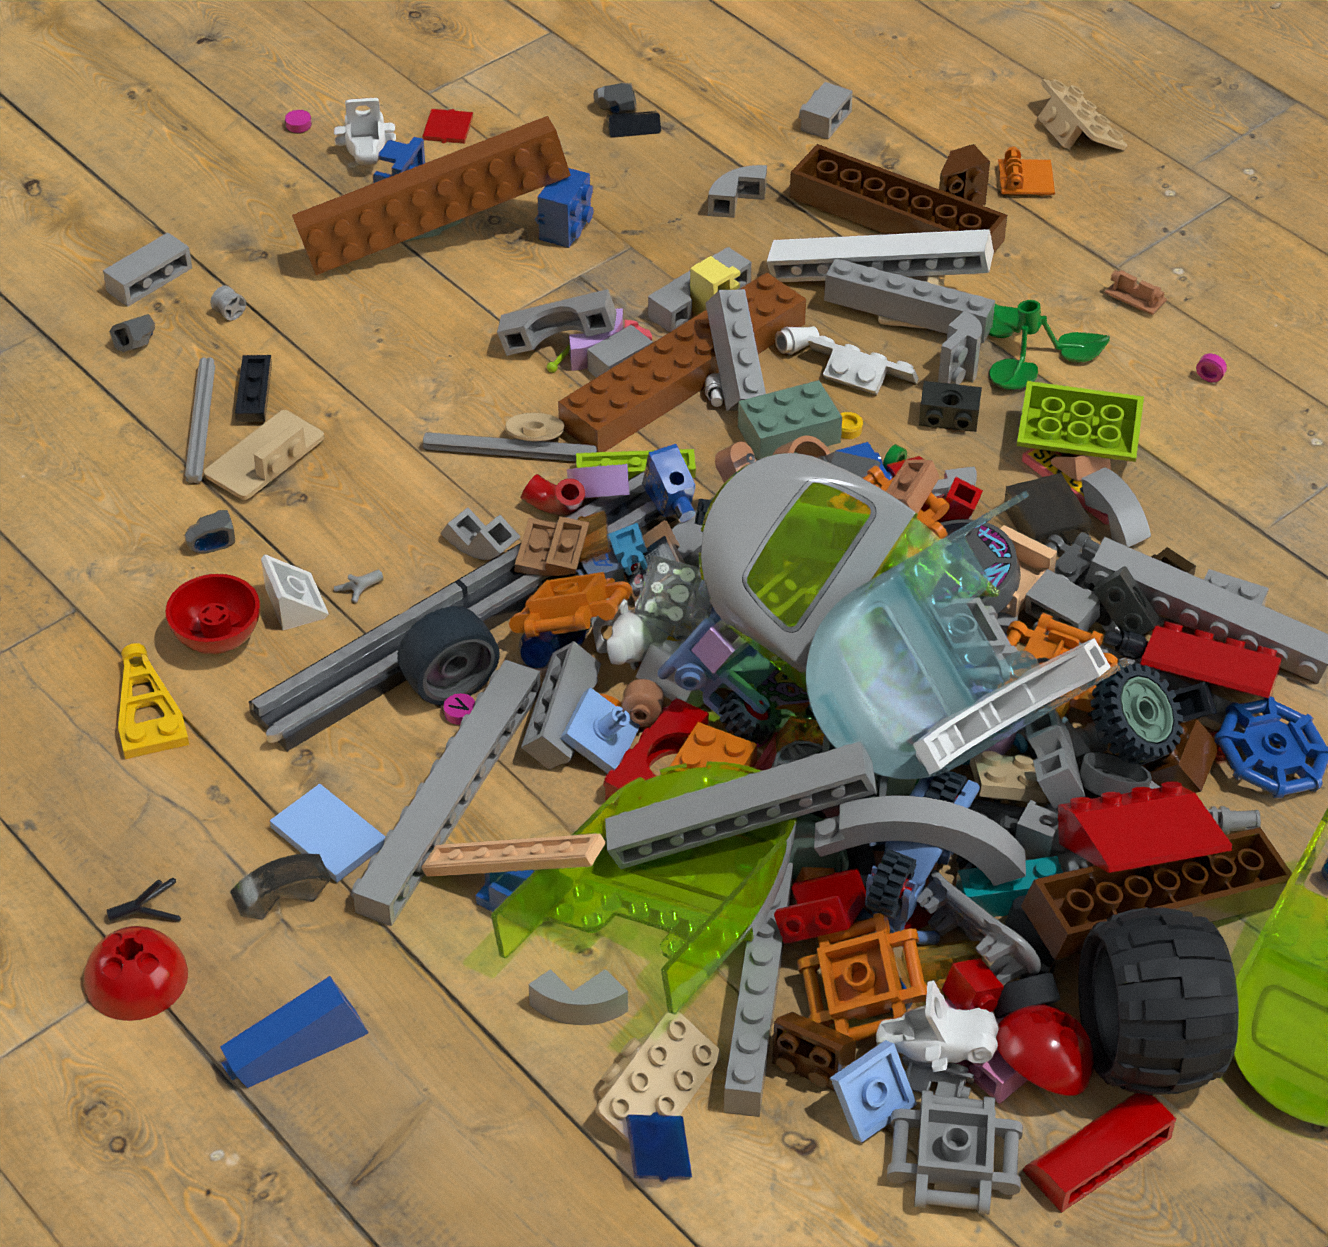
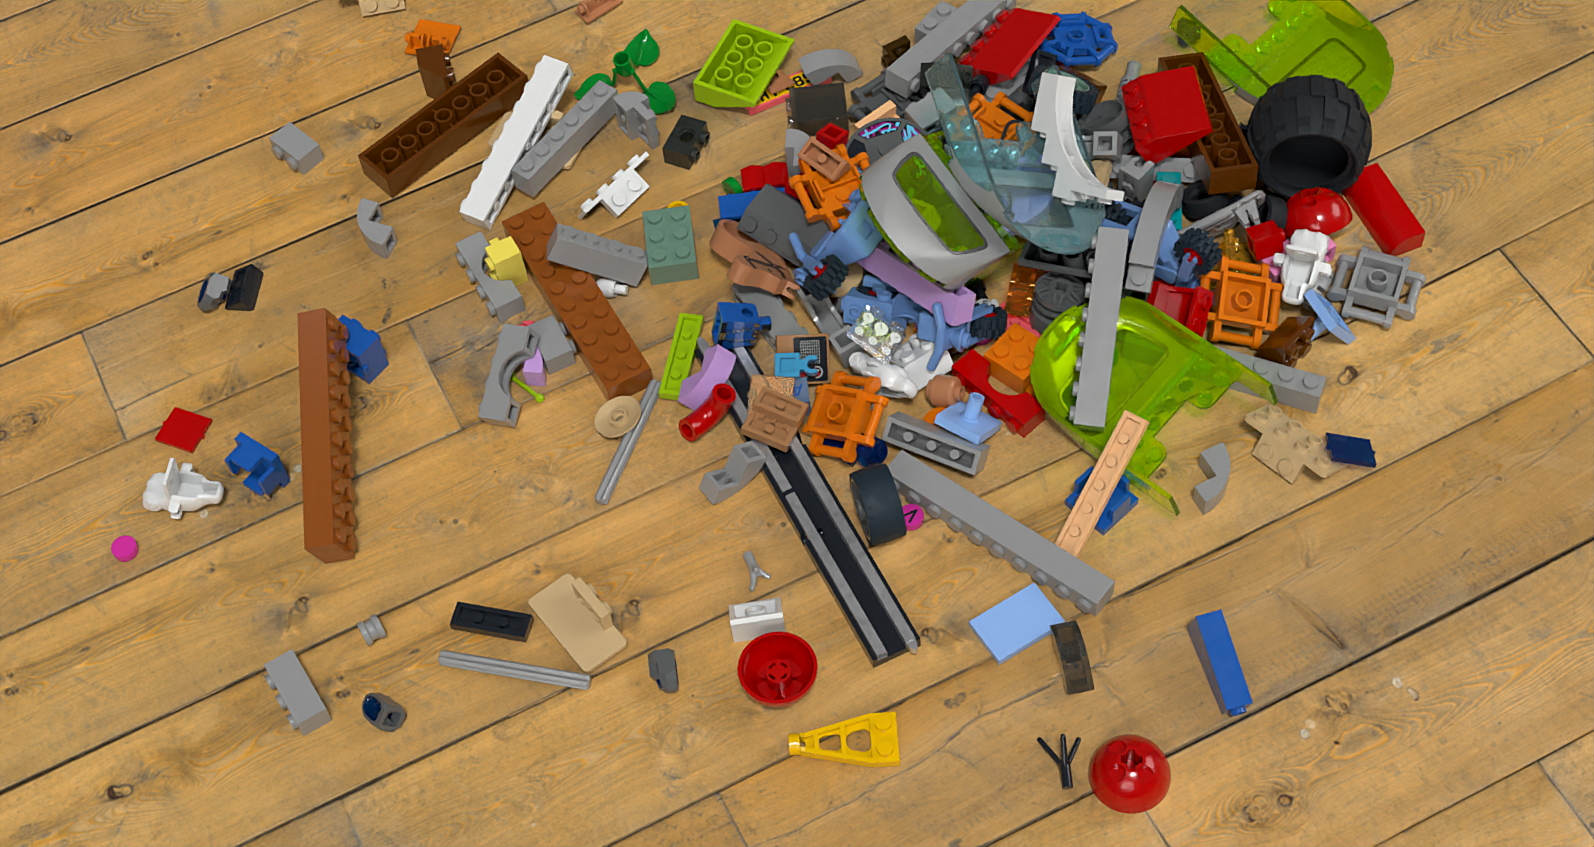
camera: 70 degrees left, 10 degrees up
(794, 338) = (571, 218): white cone -> none

